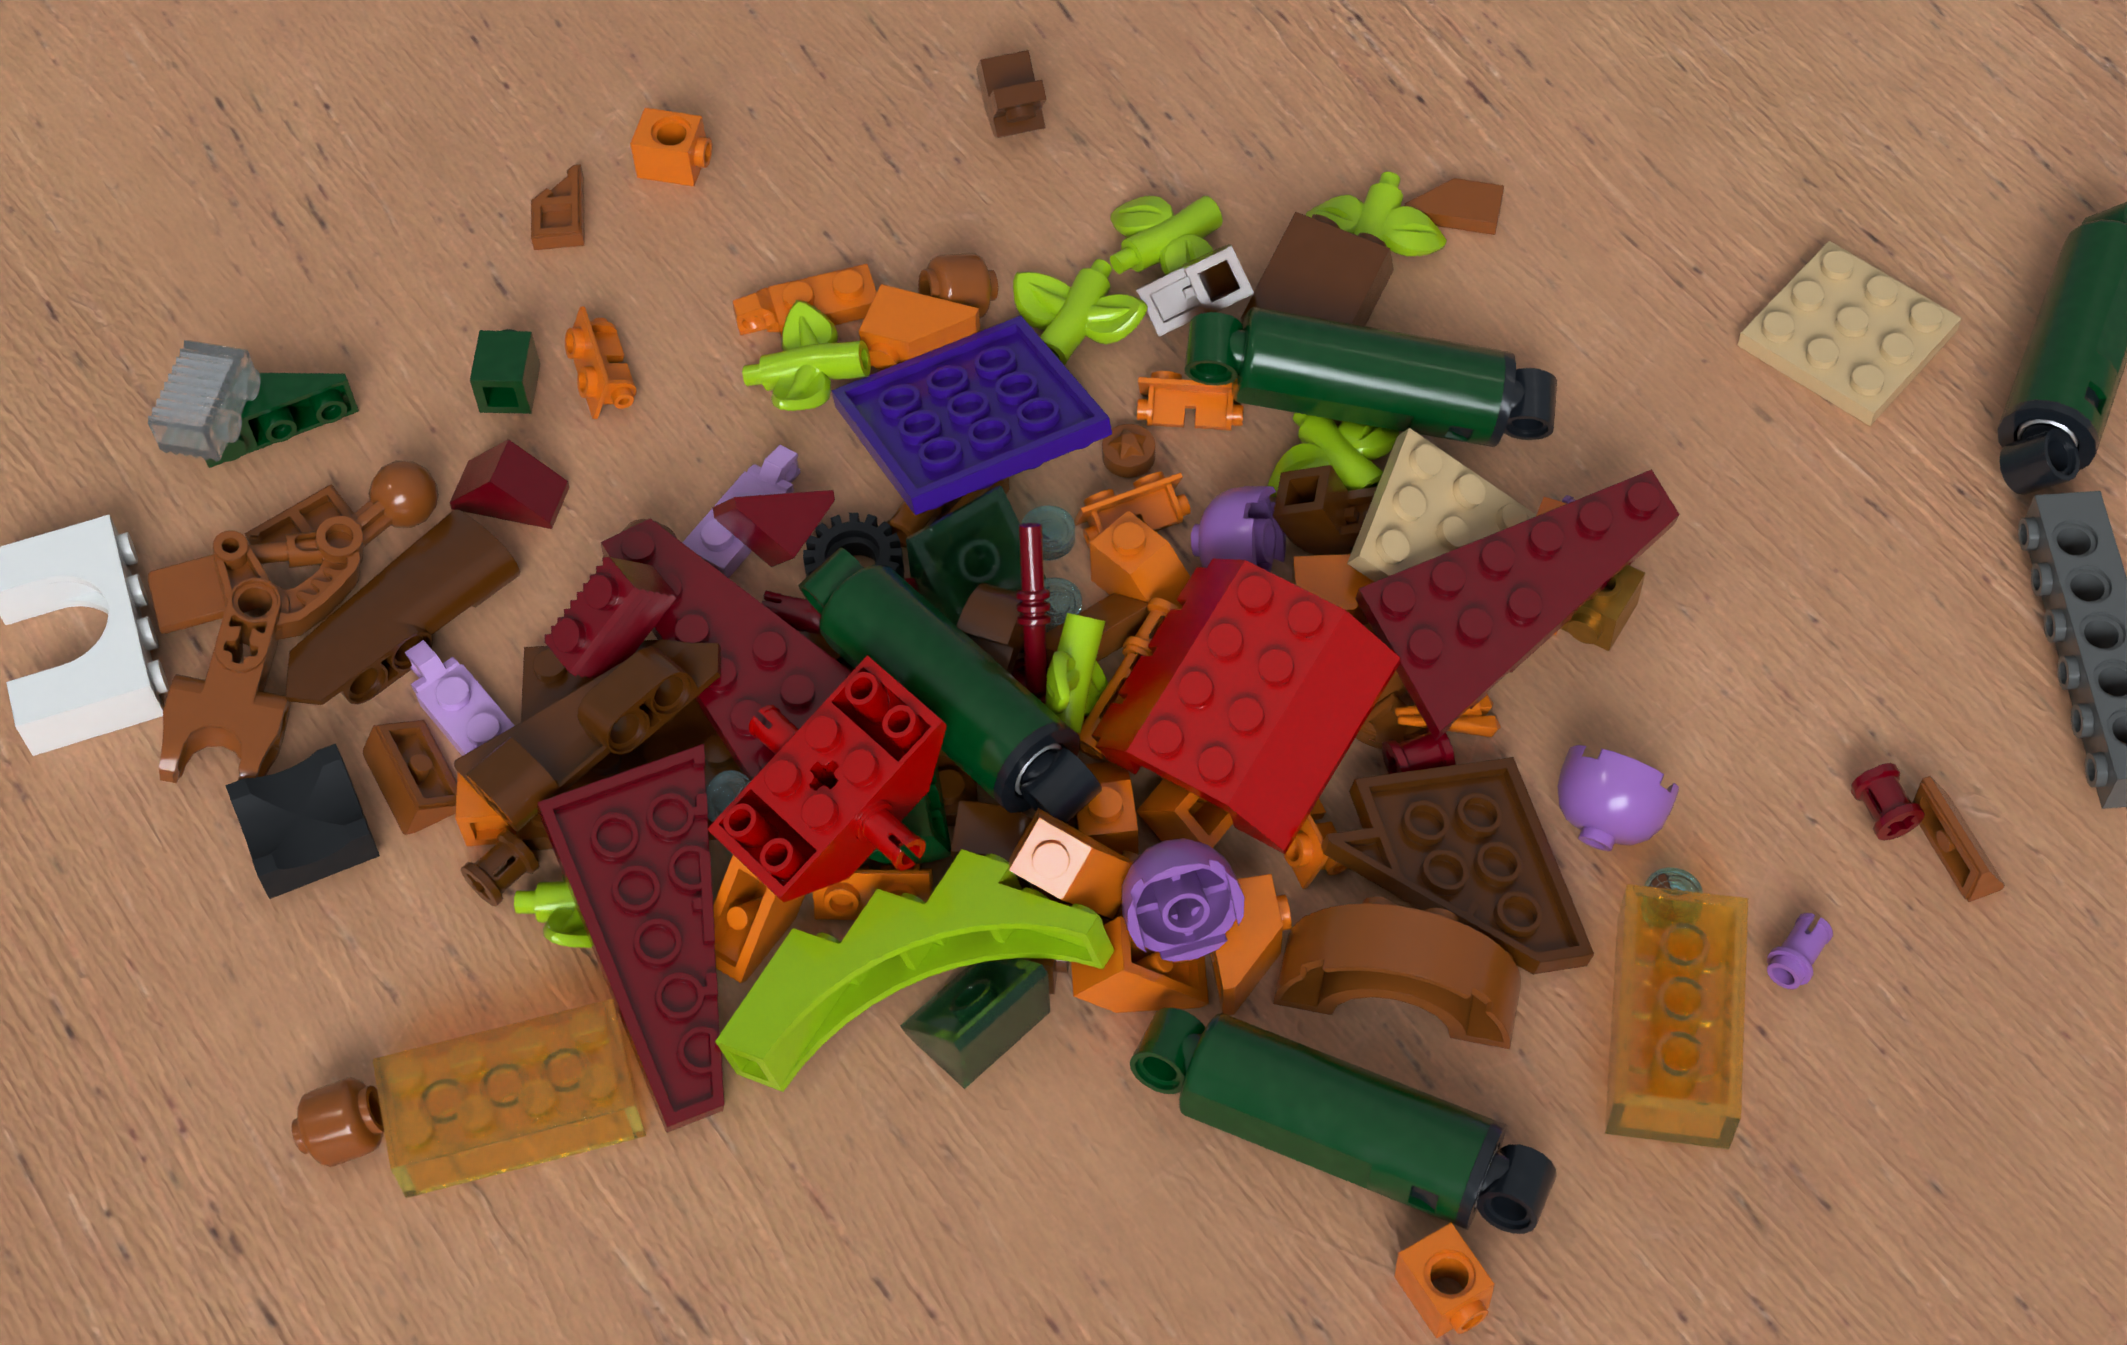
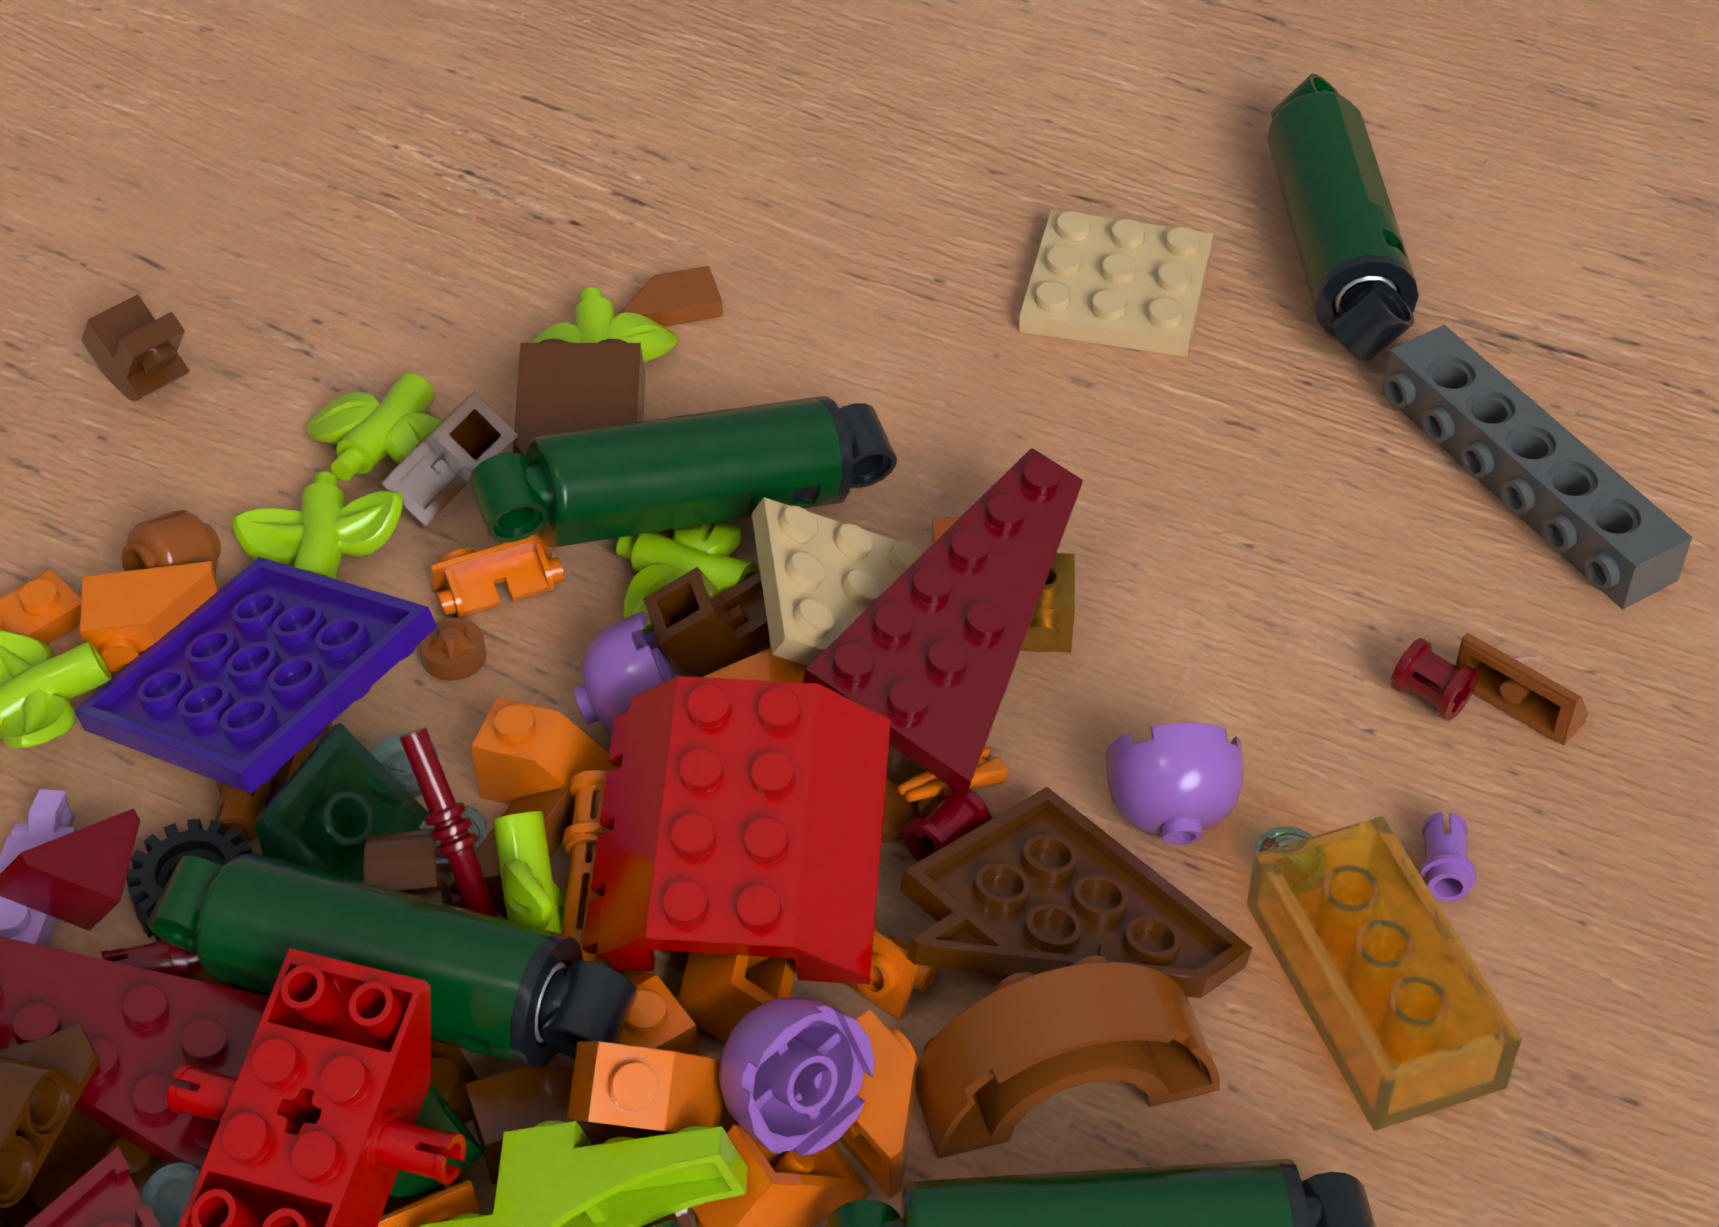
camera: 30 degrees left, 10 degrees down
(1150, 500) = (504, 677): orange hinge -> none

